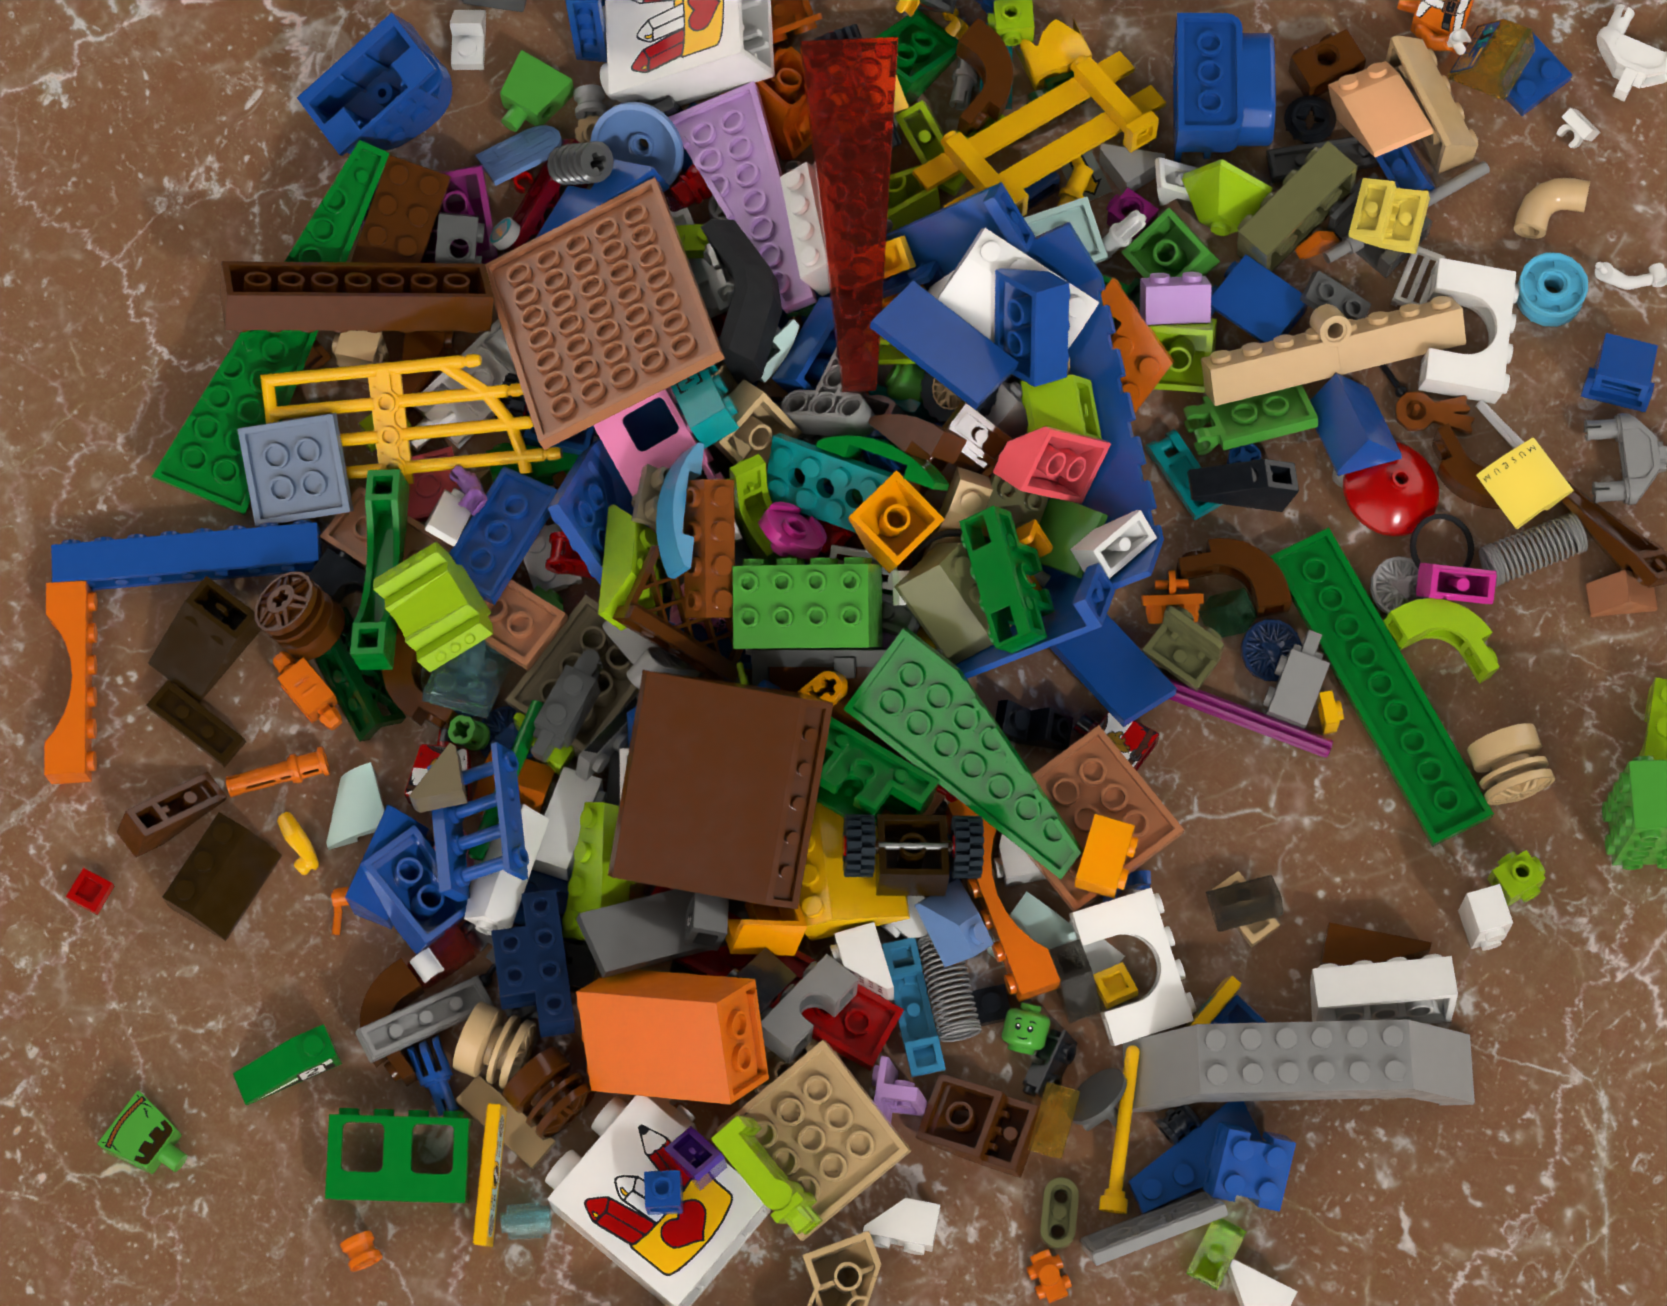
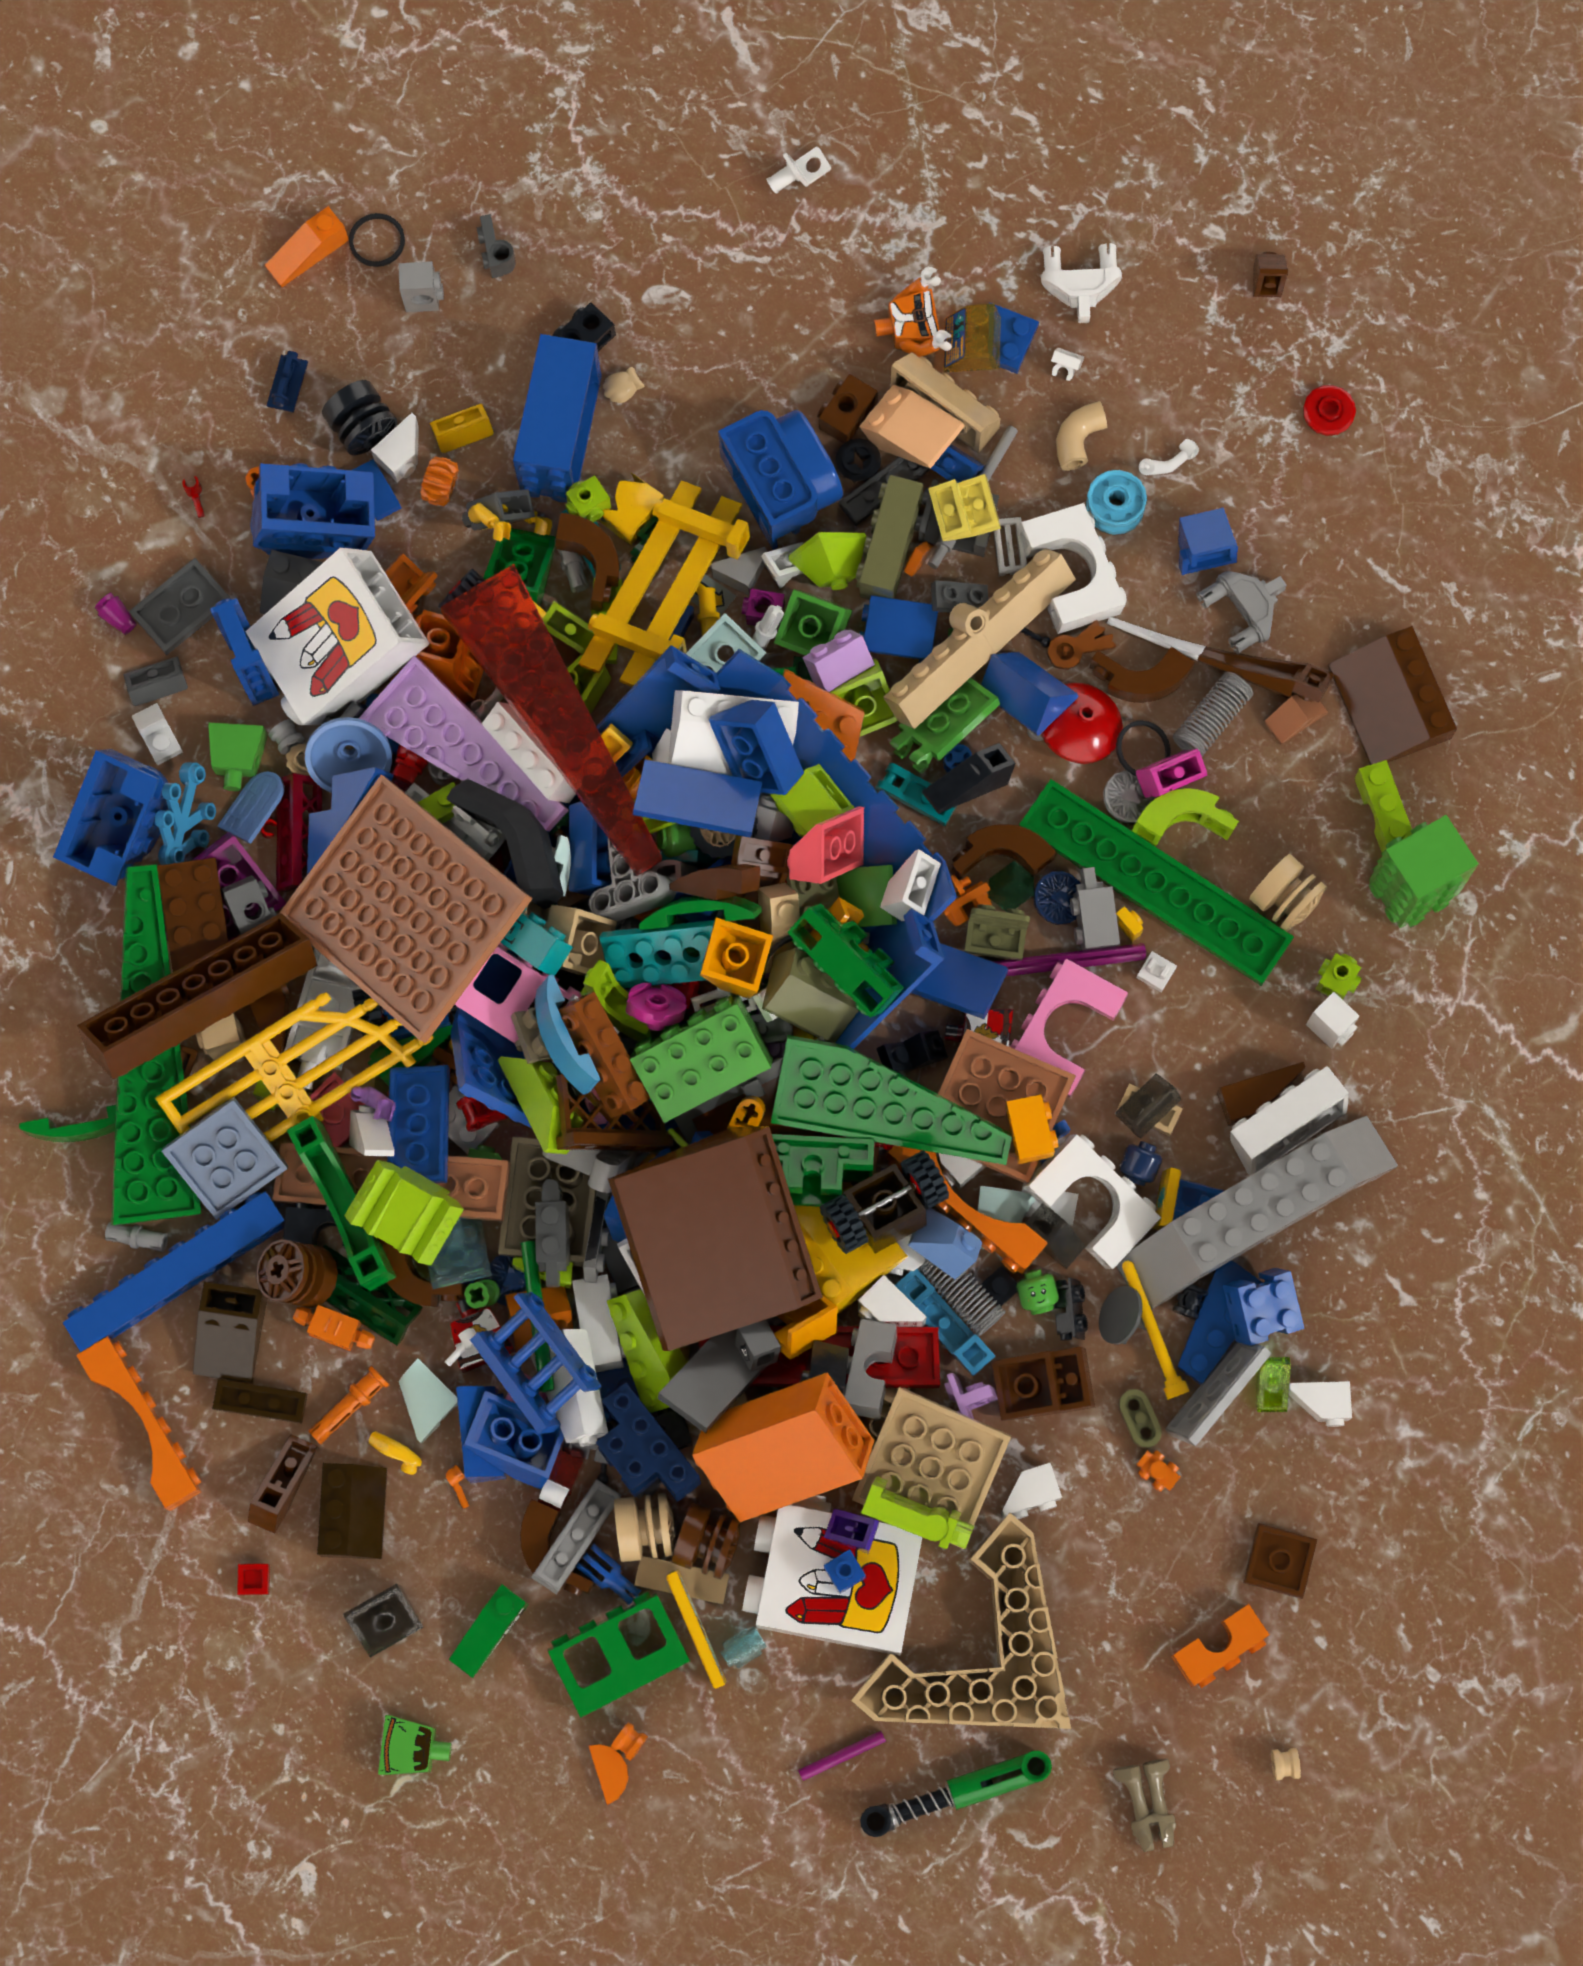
camera: 30 degrees left, 5 degrees up
(170, 503) = (136, 1237): none -> light grey pin
(174, 375) = (45, 1129): none -> green slope
(191, 997) = (383, 1620): none -> clear smoke slope
(326, 1272) = (610, 1770): none -> orange tile
(417, 773) = (465, 1337): none -> white hand
(418, 149) = (174, 847): none -> dark azure plant
(442, 784) = (493, 1349): dark tan slope -> none
(504, 233) = (281, 879): light grey tile -> none
(580, 163) = (312, 792): dark grey piece -> none
(1054, 1120) = (1099, 1350): clear yellow hinge -> none
(1115, 985) = (1086, 1221): yellow plate -> none
(1205, 957) = (1141, 1163): none -> dark blue head
(1229, 740) = (1069, 986): none -> bright pink arch
(1331, 776) = (1156, 971): none -> white tile
(1524, 482) = (1181, 667): light yellow slope -> none

